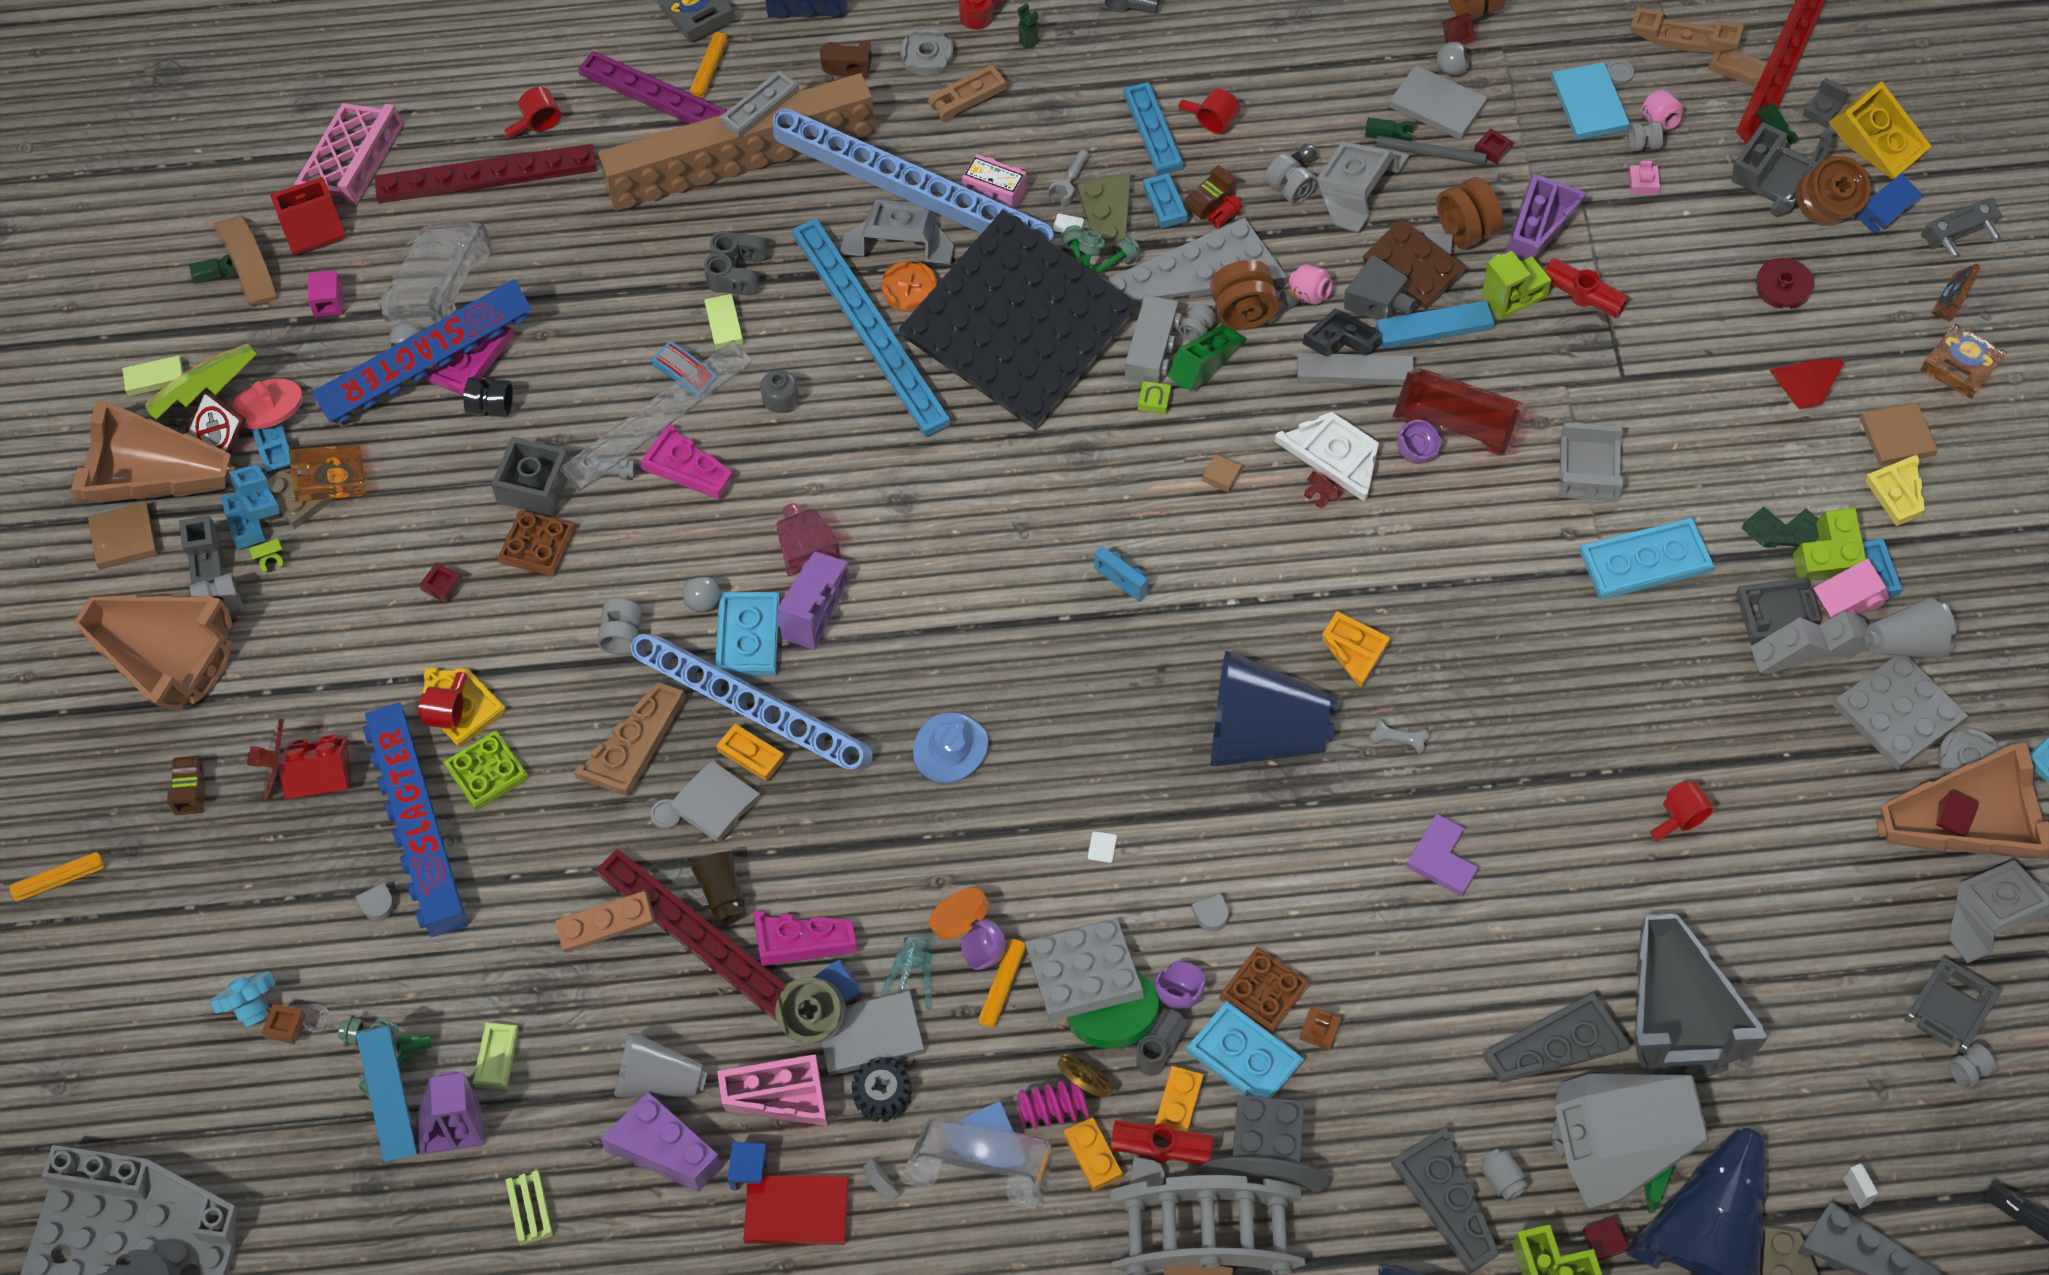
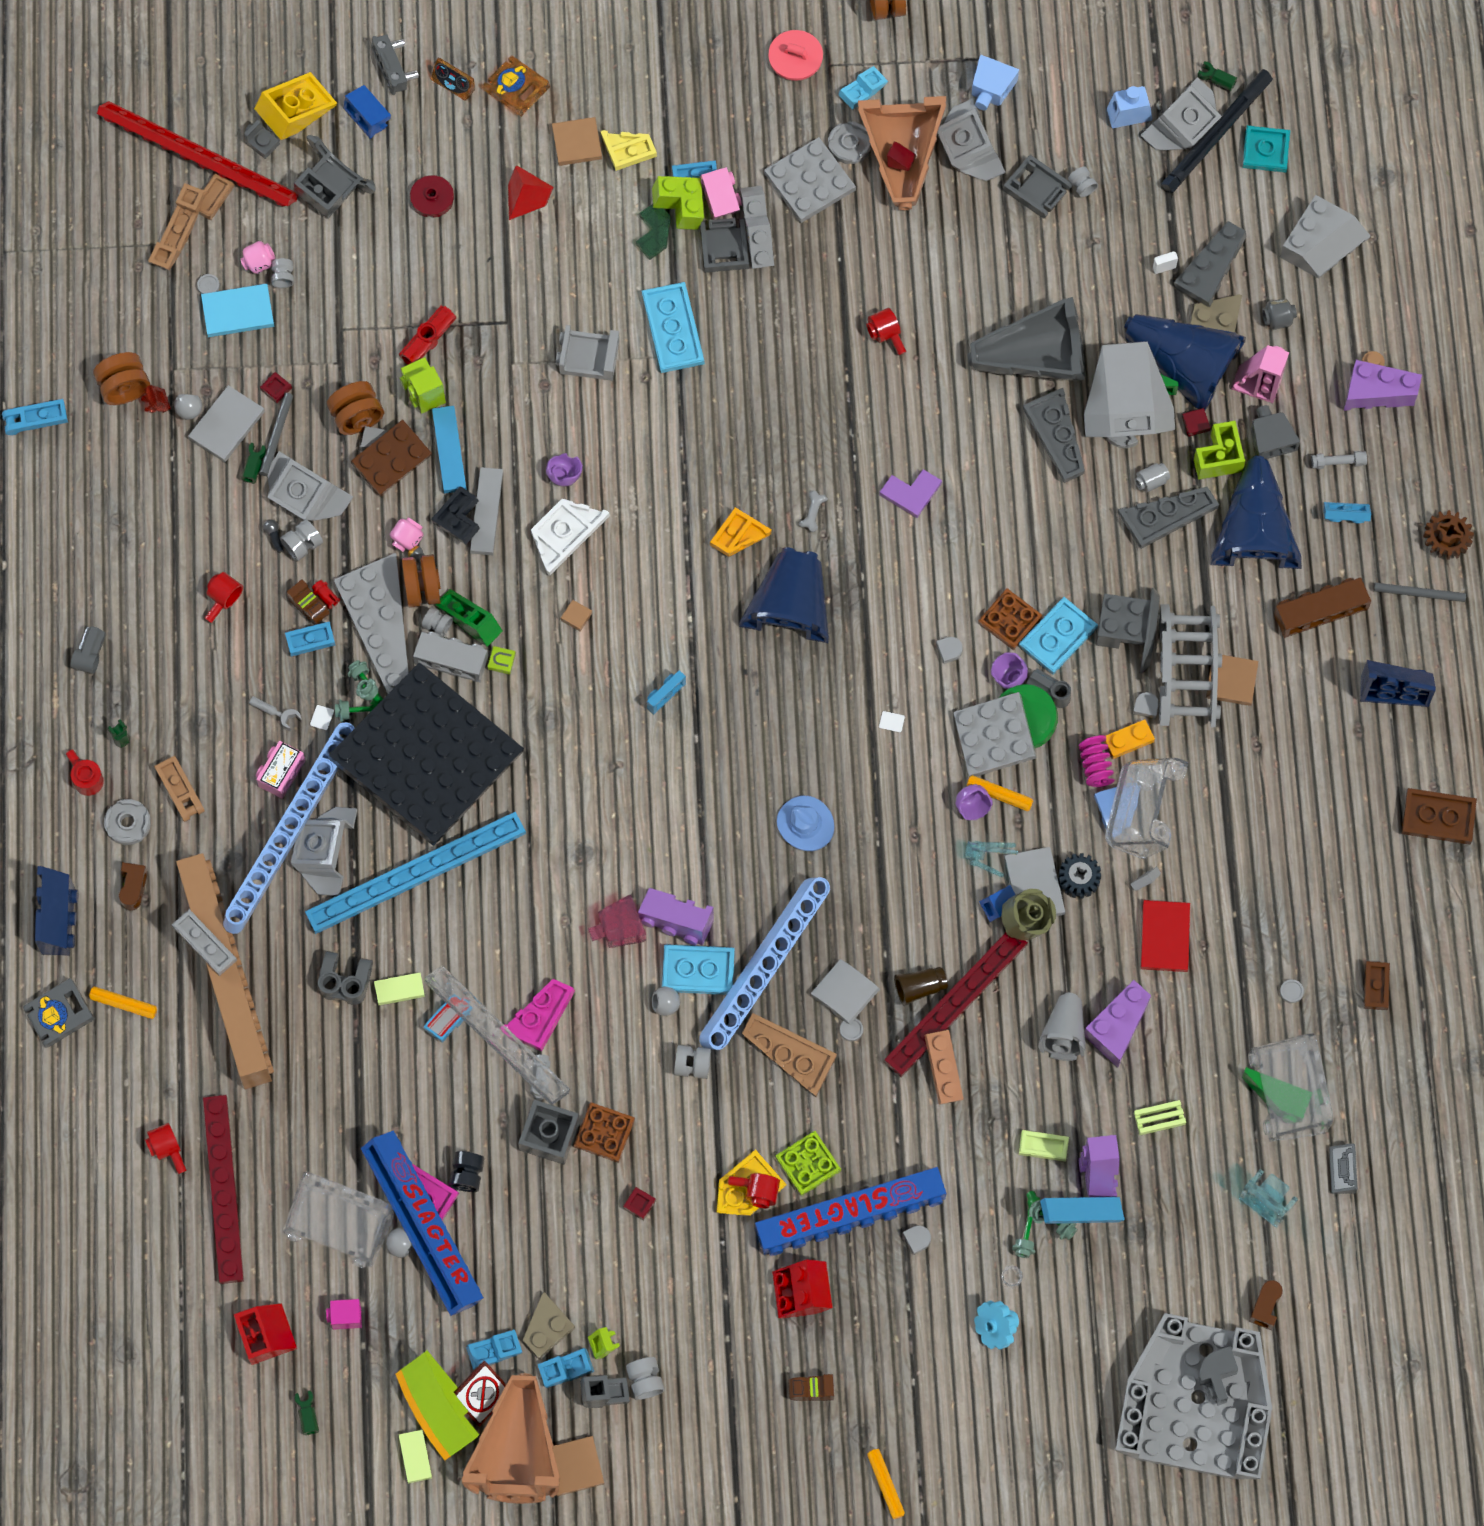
camera: 90 degrees left, 10 degrees up
(161, 643) = (690, 1419): nougat cone -> none
(246, 259) = (297, 1385): medium nougat slope -> none
(254, 492) = (548, 1355): dark azure slope -> none
(268, 402) = (457, 1351): coral shield -> none
(268, 758) = (800, 1317): clear red piece -> none
(284, 1024) = (1019, 1294): dark orange tile -> none
(332, 472) = (530, 1296): clear orange container -> none
(366, 155) = (197, 1288): bright pink fence -> none
(647, 89) = (147, 1050): magenta tile -> none
(746, 1163) = (1136, 965): blue panel -> none
(750, 752) = (805, 965): light orange plate -> none
(776, 1090) = (1081, 943): bright pink wedge -> none
(779, 391) = (479, 940): dark grey head -> none
(796, 940) = (962, 929): dark pink wing -> none
(907, 285) = (375, 842): orange tile -> none
(958, 912) = (949, 817): orange tile -> none
(1085, 1075) = (1077, 736): pearl gold wheel -> none
(1106, 208) = (314, 685): olive wing -> none
(1140, 1139) = (1122, 703): red piece -> none
(1152, 129) = (230, 645): dark azure tile -> none
(1179, 1098) = (1092, 680): light orange plate -> none
(1320, 1028) = (1040, 584): dark orange tile -> none
(1324, 487) = (597, 541): clear red tile -> none
(1378, 291) = (418, 484): dark grey torso -> none
(1461, 409) = (535, 430): clear red windscreen -> none
(1542, 215) = (361, 360): medium lavender wedge -> none
(1644, 178) = (321, 281): bright pink tile -> none
(1770, 115) = (283, 177): dark green bar -> none
(1833, 190) = (359, 145): dark orange wheel -> none
(1915, 631) = (757, 156): light grey cone -> none

